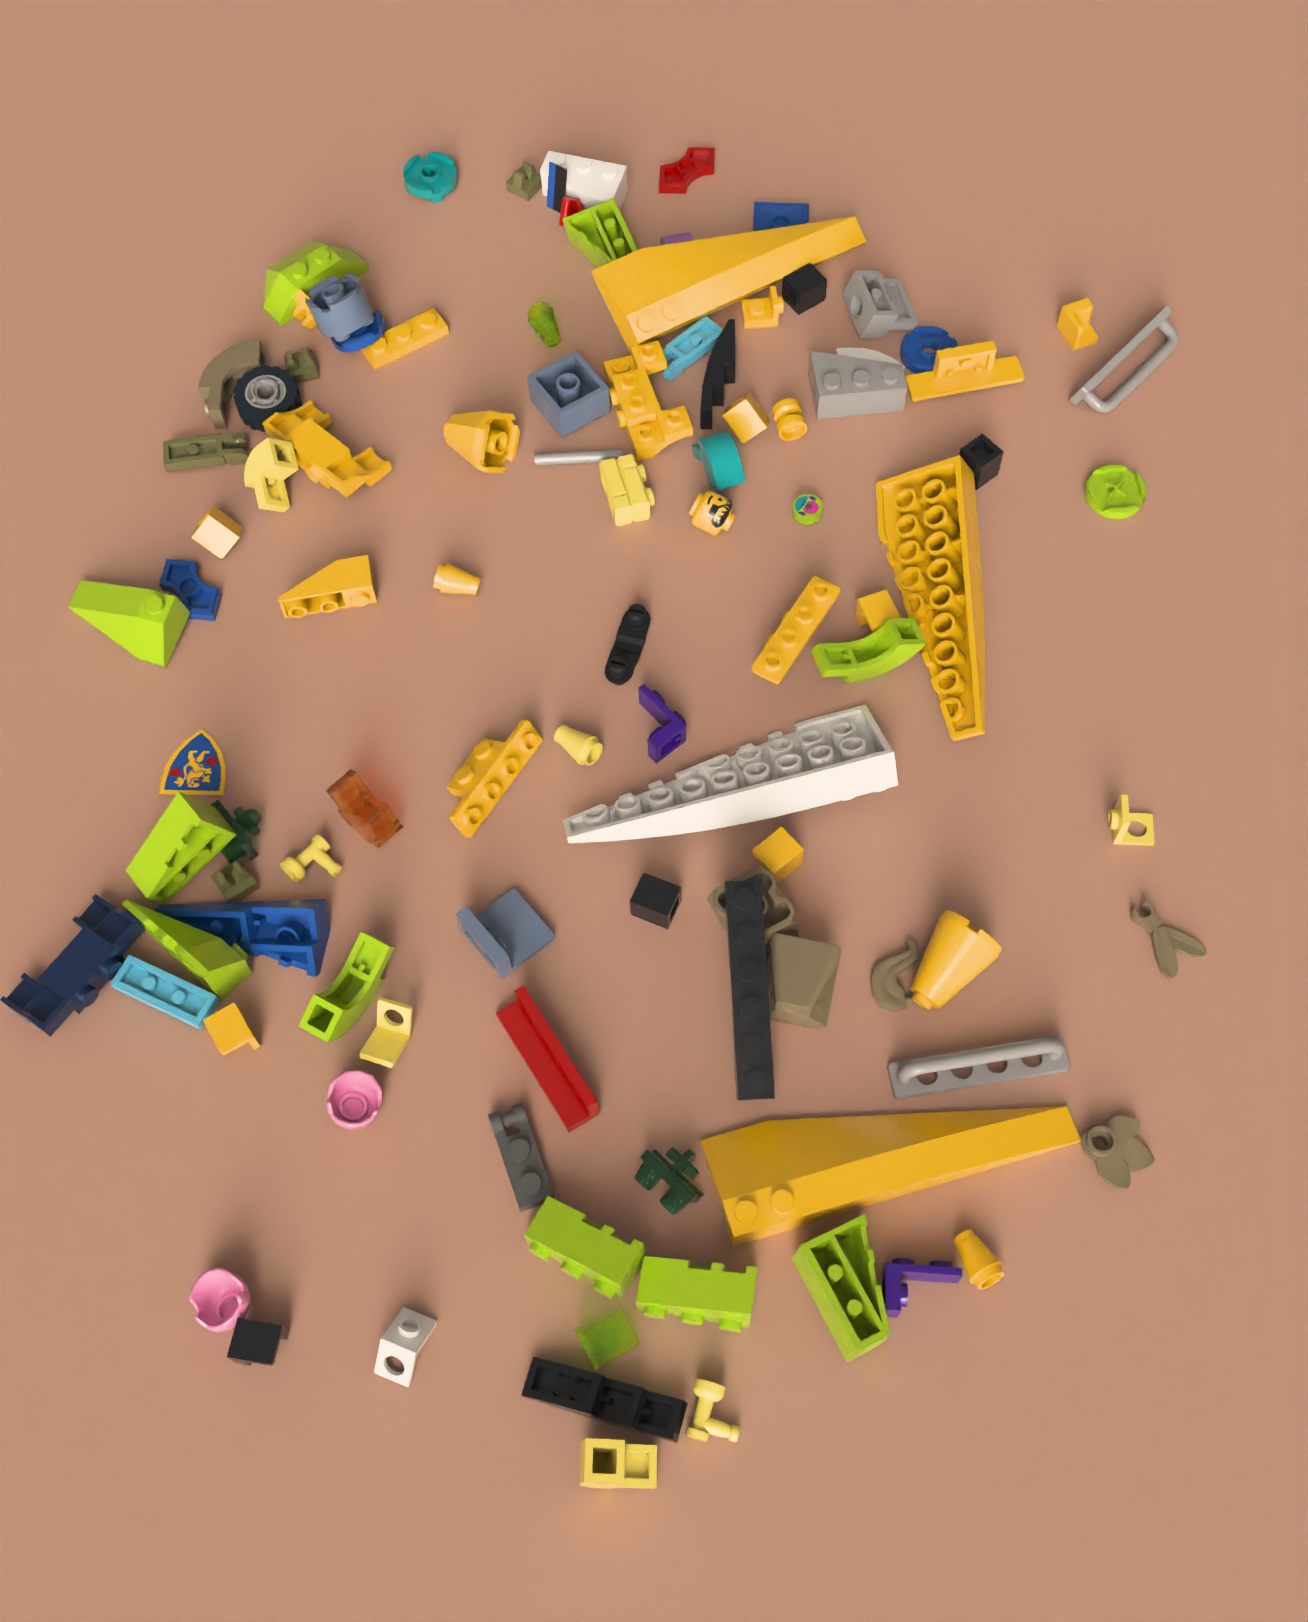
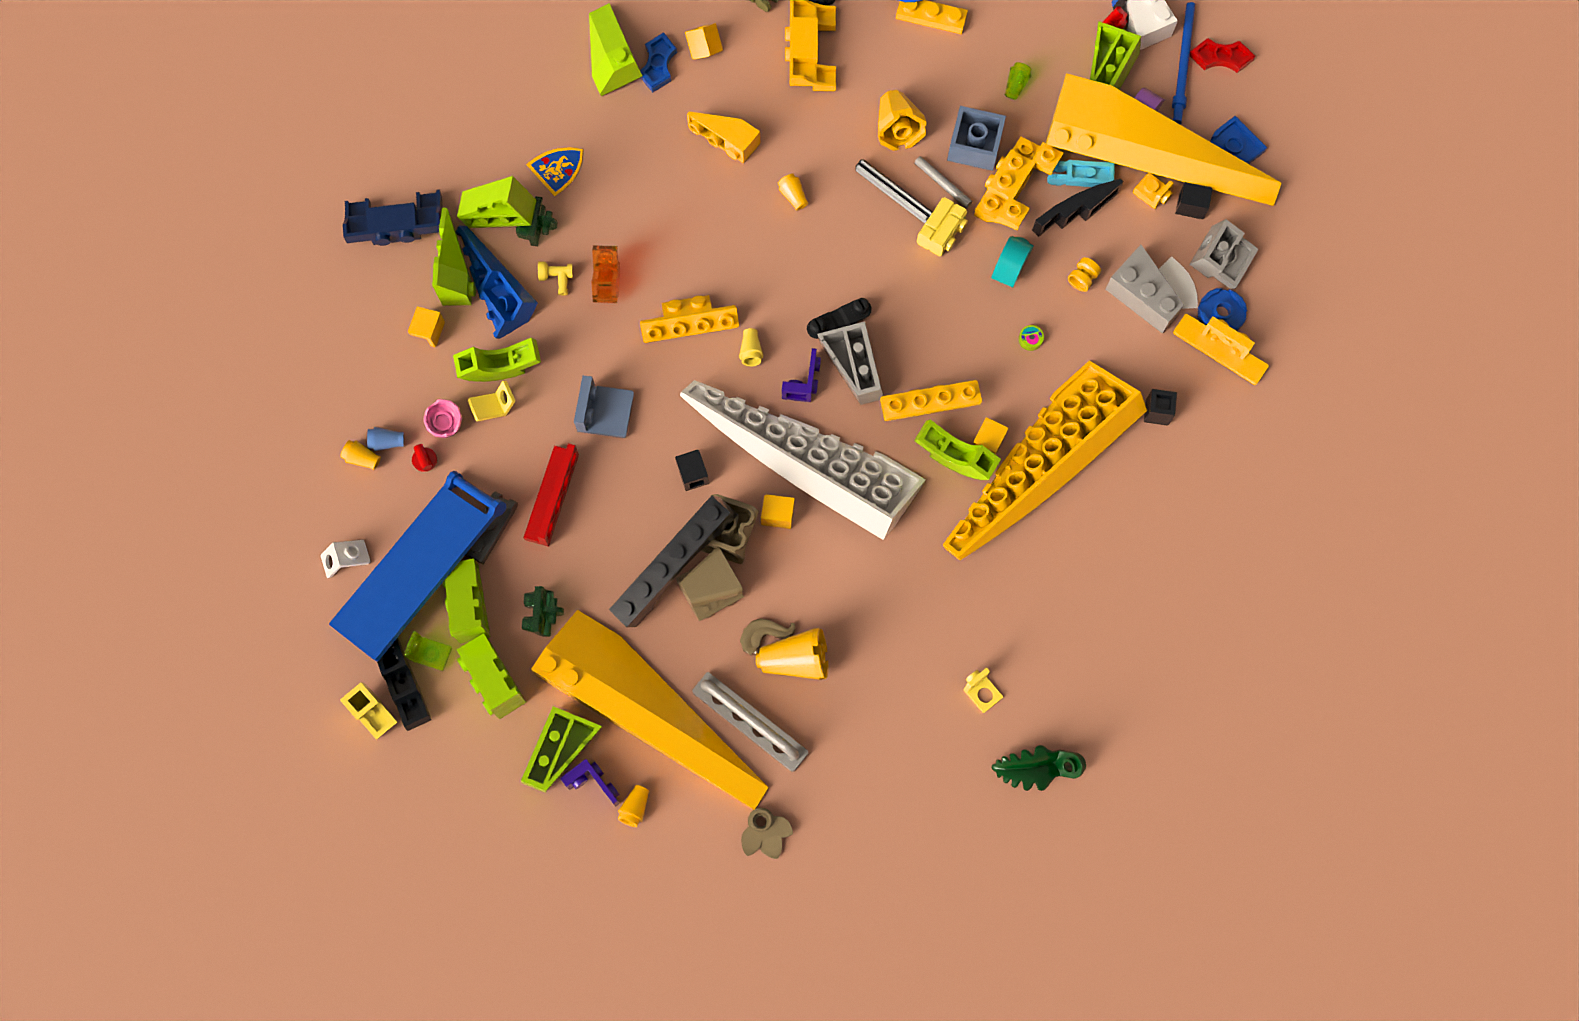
camera: 45 degrees right, 10 degrees up
(165, 992) = (419, 273): medium azure plate -> none
(220, 1299) = (289, 450): bright pink hair -> none
(235, 881) = (510, 249): olive tile -> none
(255, 1342) = (283, 485): black panel -> none
(266, 471) = (763, 29): light yellow brick -> none
(303, 1226) = (358, 454): none -> yellow cone
(311, 1184) = (384, 439): none -> medium blue cone
(376, 1160) = (424, 458): none -> red plate
(496, 1275) = (415, 567): none -> blue flag
(545, 501) = (893, 190): none -> axle
(688, 663) = (854, 359): none -> light grey wedge
(695, 227) = (1180, 100): none -> blue bar
(702, 1423) = (428, 736): light yellow piece -> none
(712, 513) = (972, 287): yellow head -> none
(746, 417) = (1062, 249): yellow panel -> none
(1075, 324) = (1332, 383): yellow panel -> none
(1115, 492) = (1221, 504): lime tile -> none
(1140, 375) = (1384, 429): light grey piece -> none
(1166, 940) = (925, 765): dark tan piece -> none
(1257, 837) = (1040, 767): none -> dark green plant

